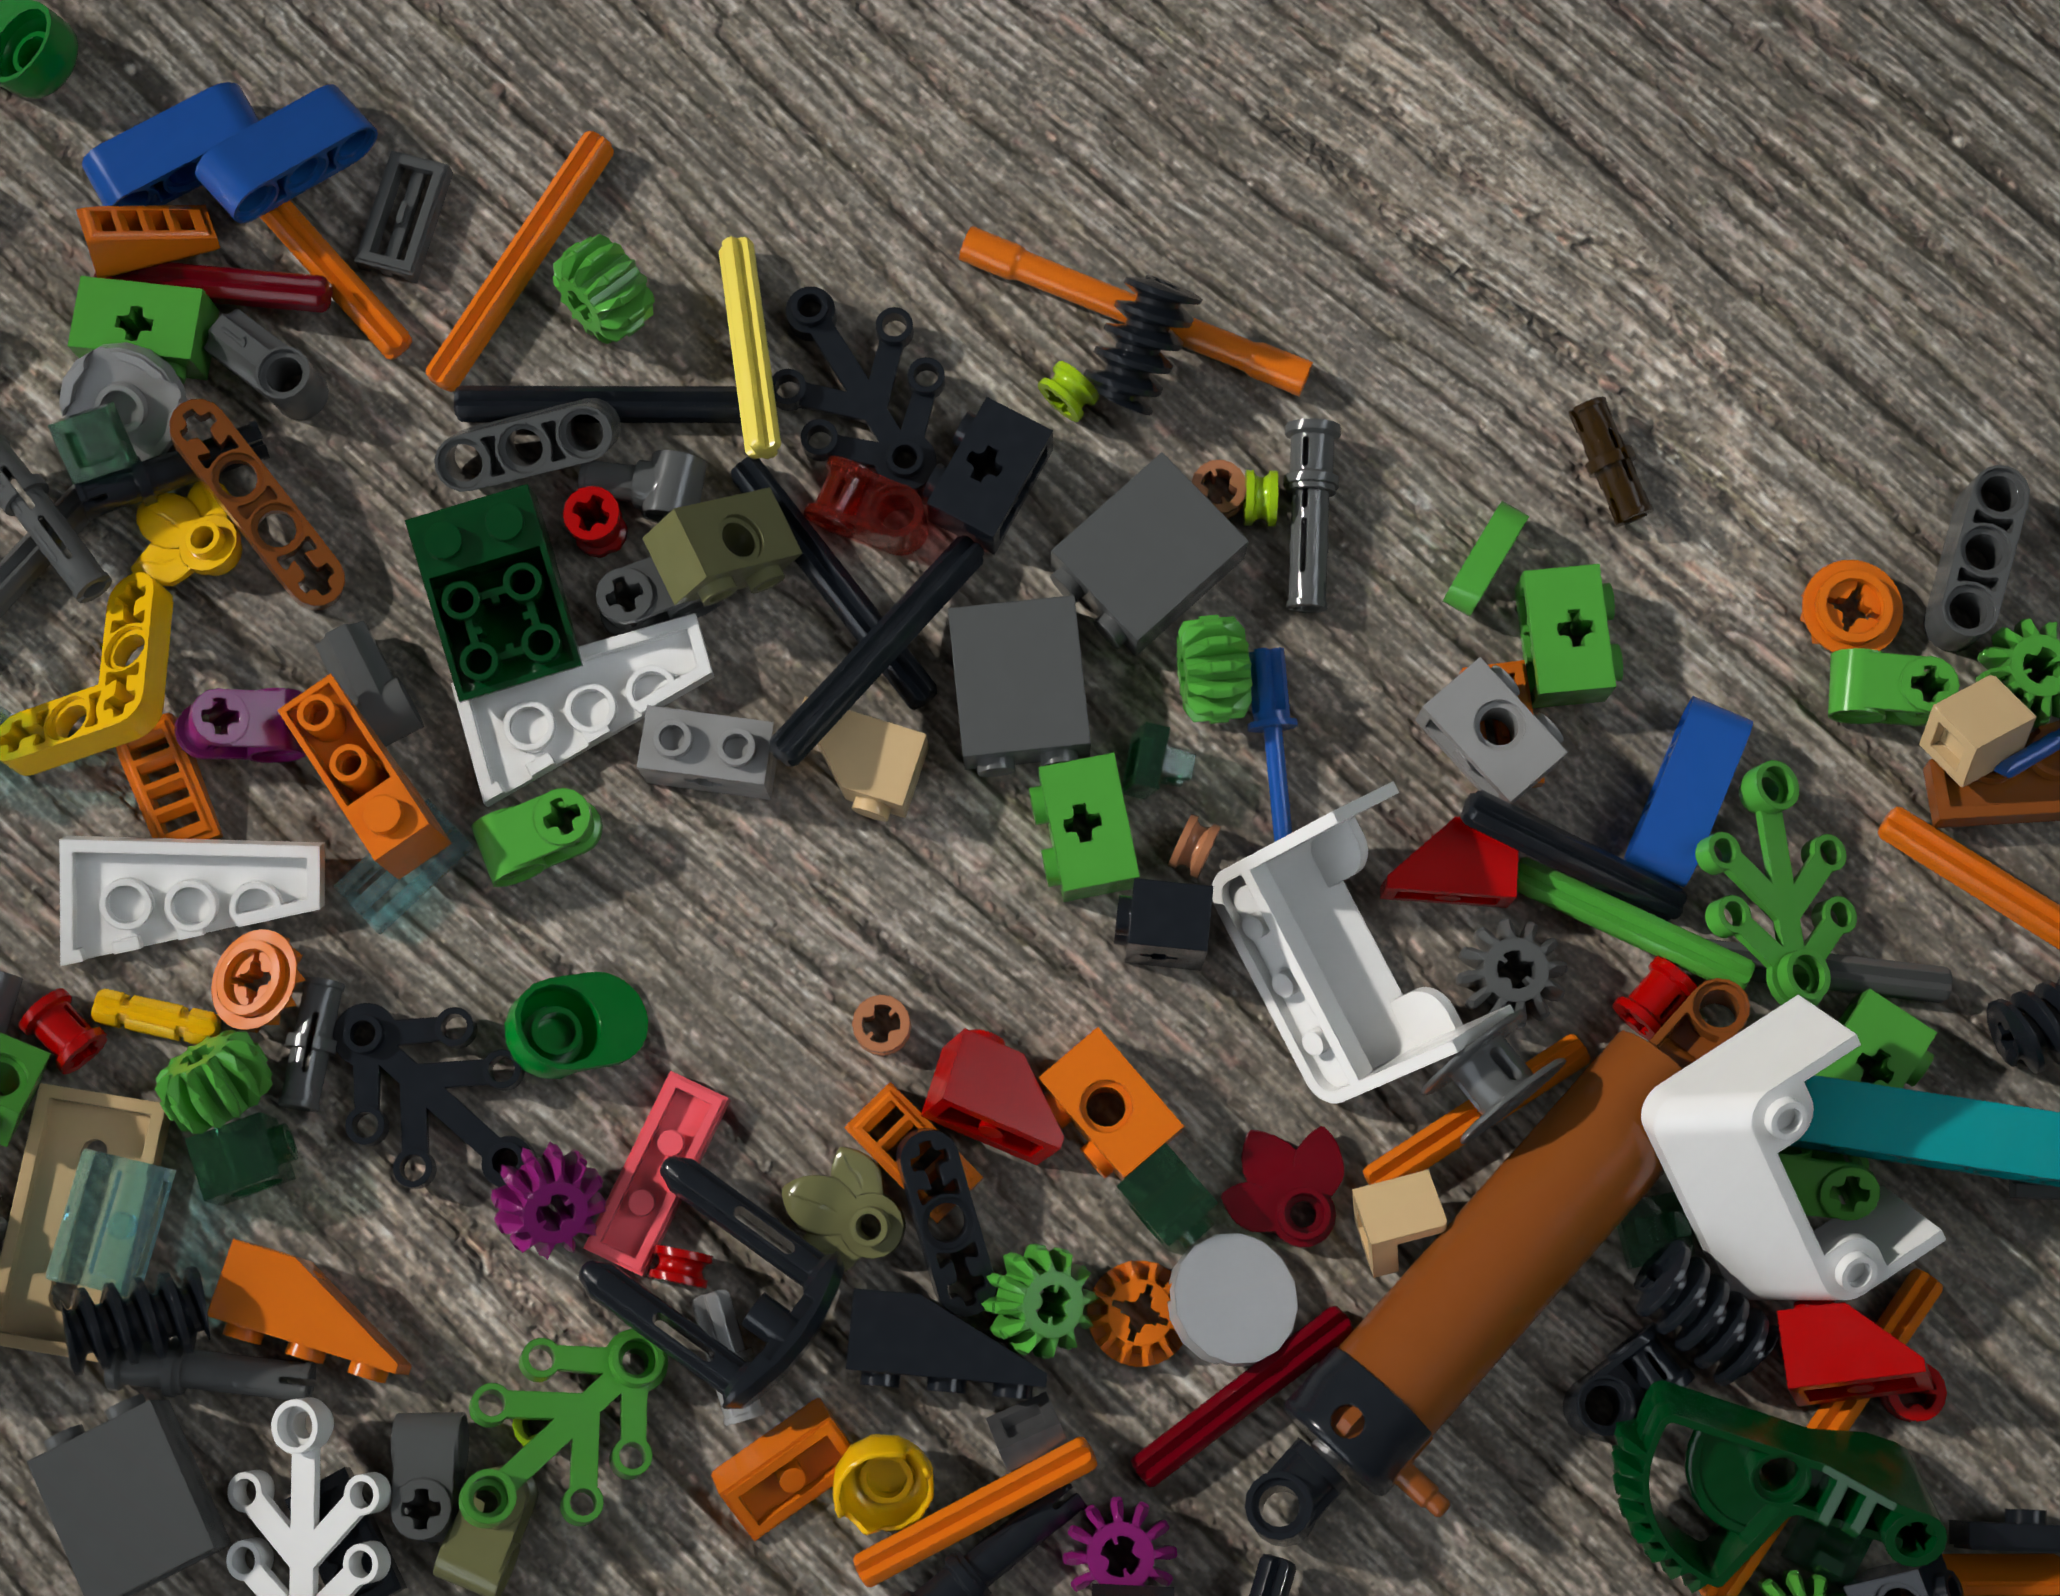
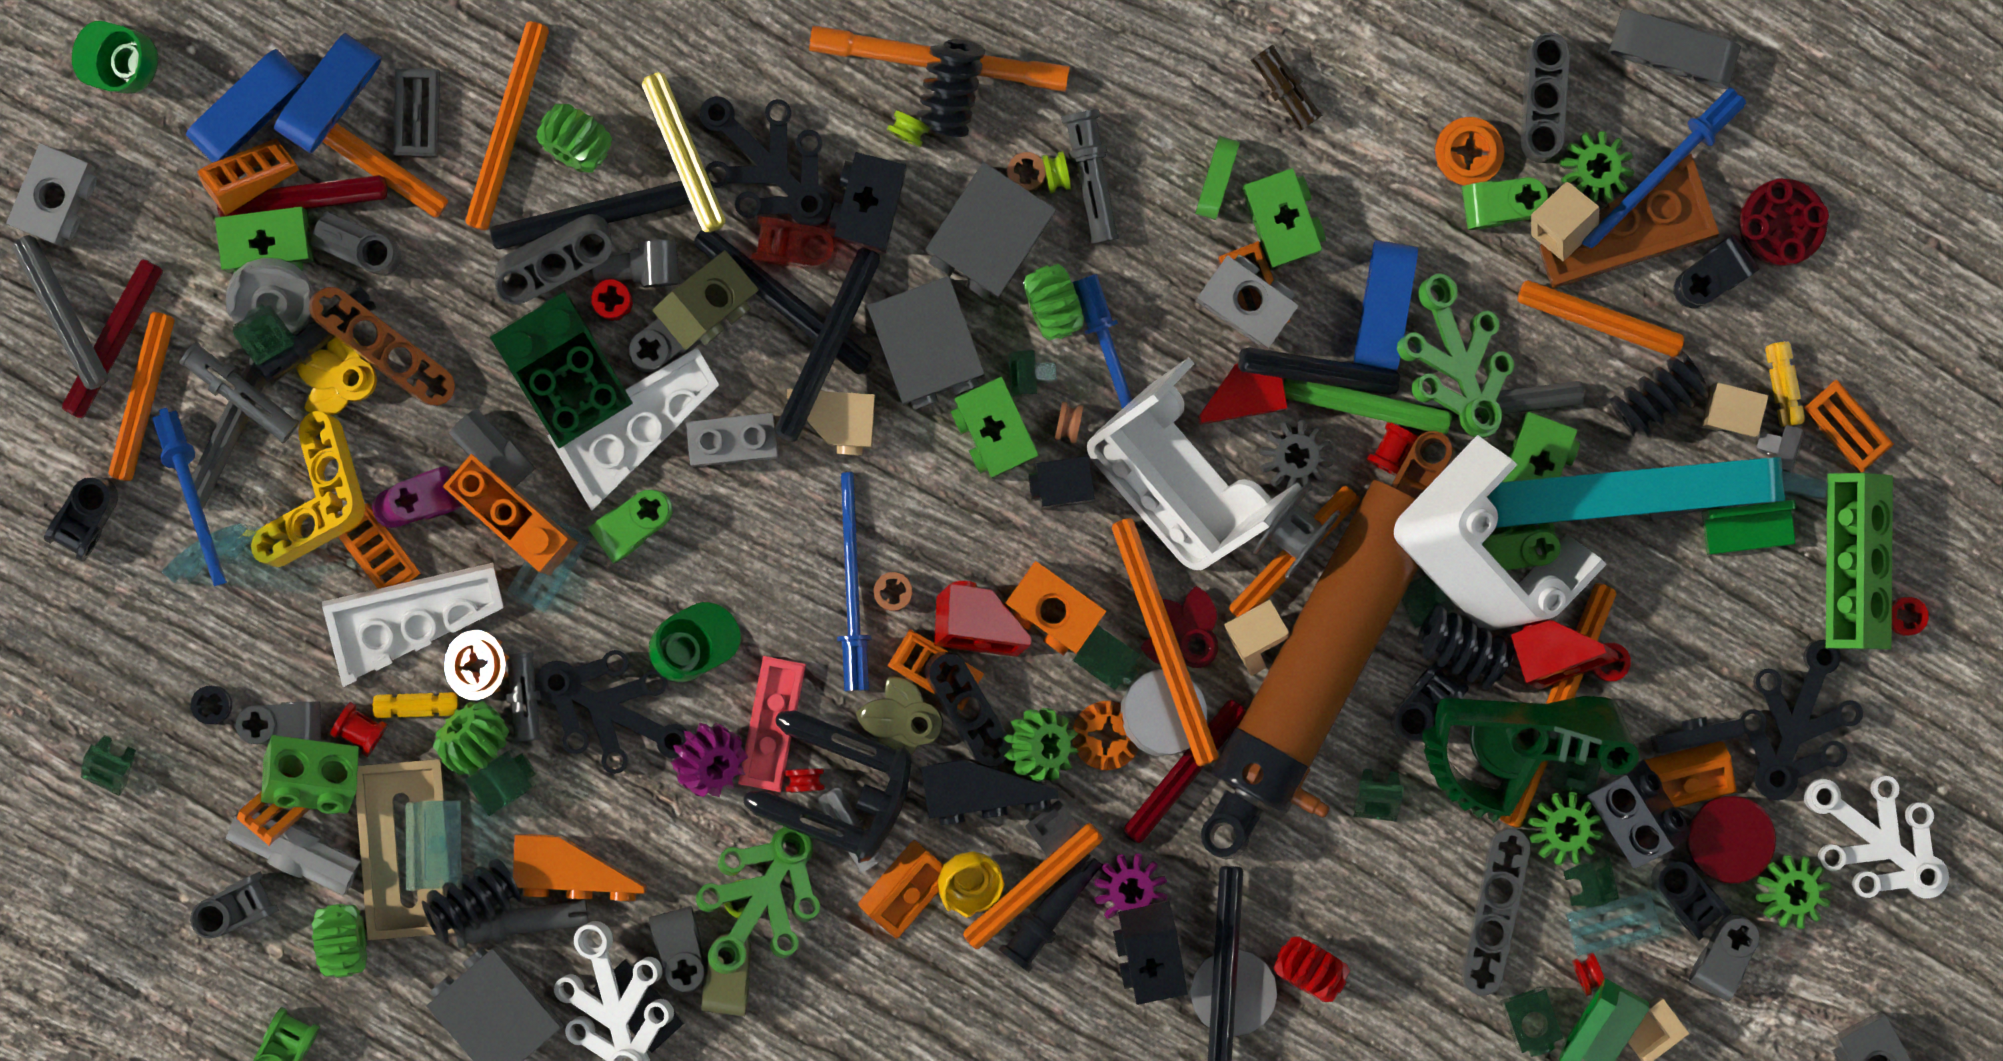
camera: 25 degrees left, 10 degrees up
(806, 1084) = (854, 644): none -> blue piece
(1259, 1198) = (1165, 642): none -> orange axle
(1523, 1511) = (1377, 799): none -> clear green tile

